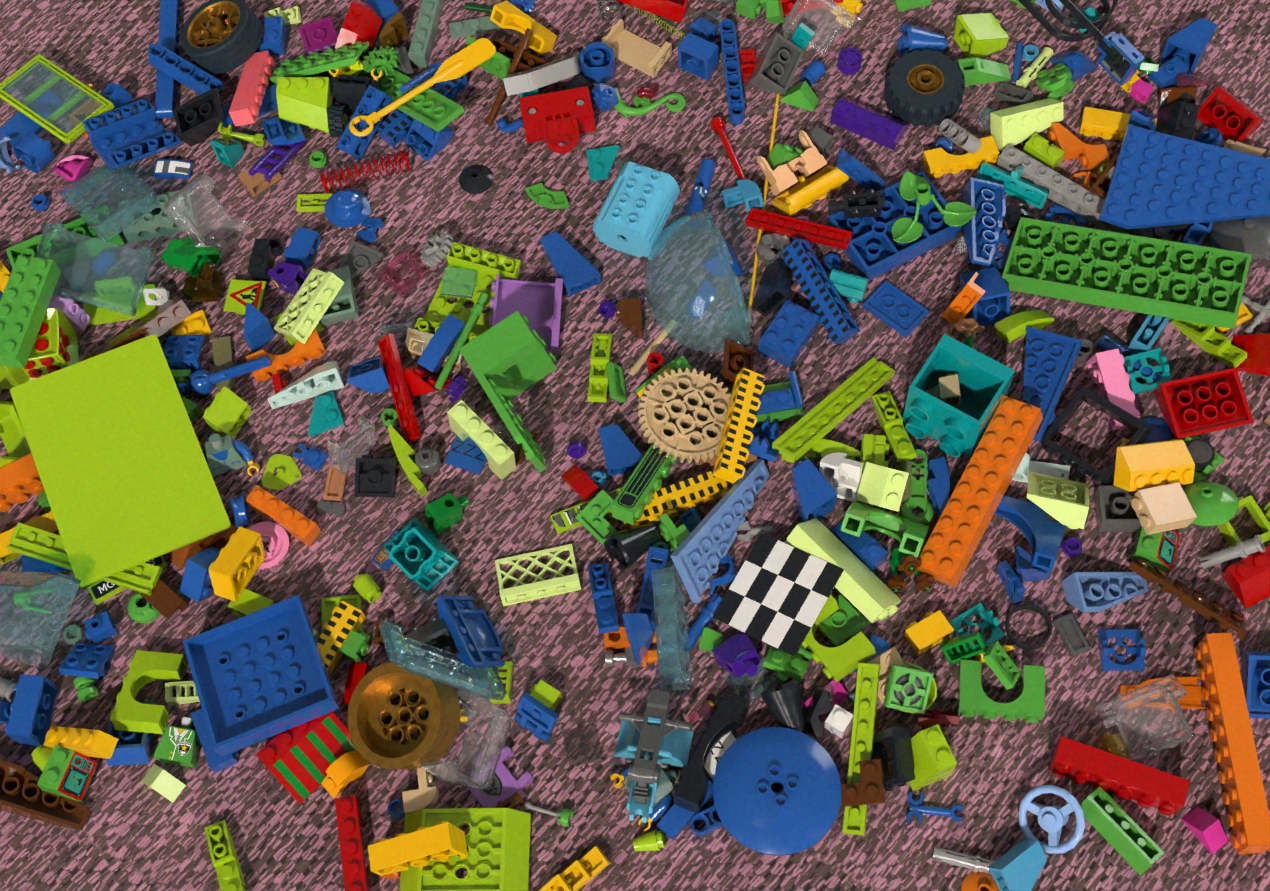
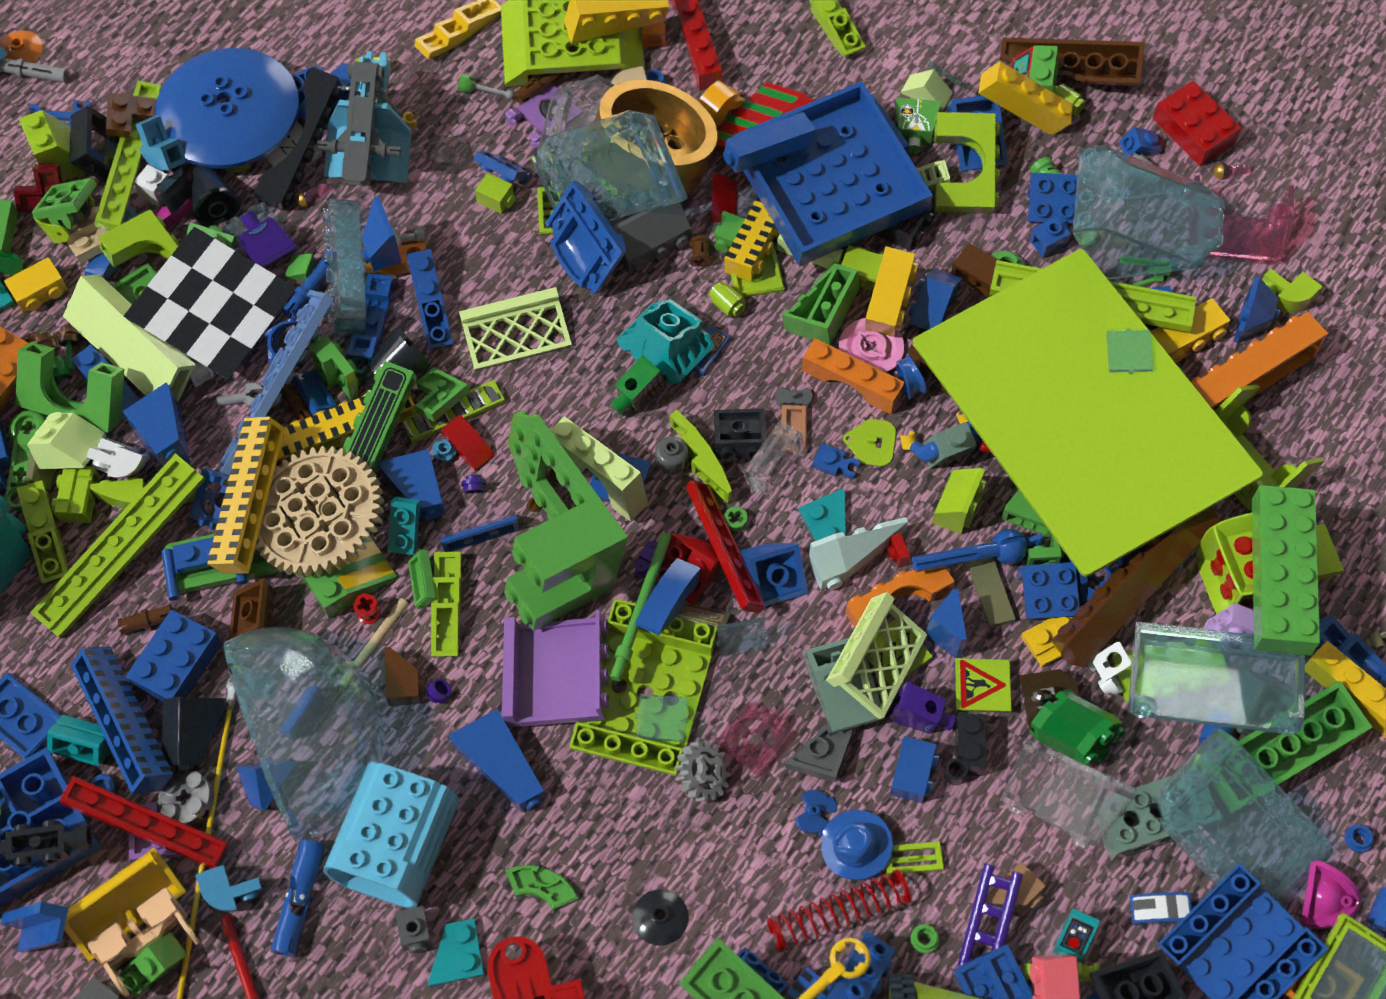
camera: 170 degrees right, 0 degrees up
(31, 710) = (1099, 122): blue brick -> none
(70, 492) = (1129, 351): none -> clear light blue piece
(138, 788) = (949, 75): none -> piece
(292, 572) = (824, 306): none -> bright green wedge
(303, 683) = (769, 142): none -> blue brick
(574, 416) = (479, 533): none -> blue slope
(626, 414) = (403, 525): none -> teal piece
(812, 365) = (144, 619): none -> reddish brown pin
(831, 745) = (157, 148): none -> dark azure brick

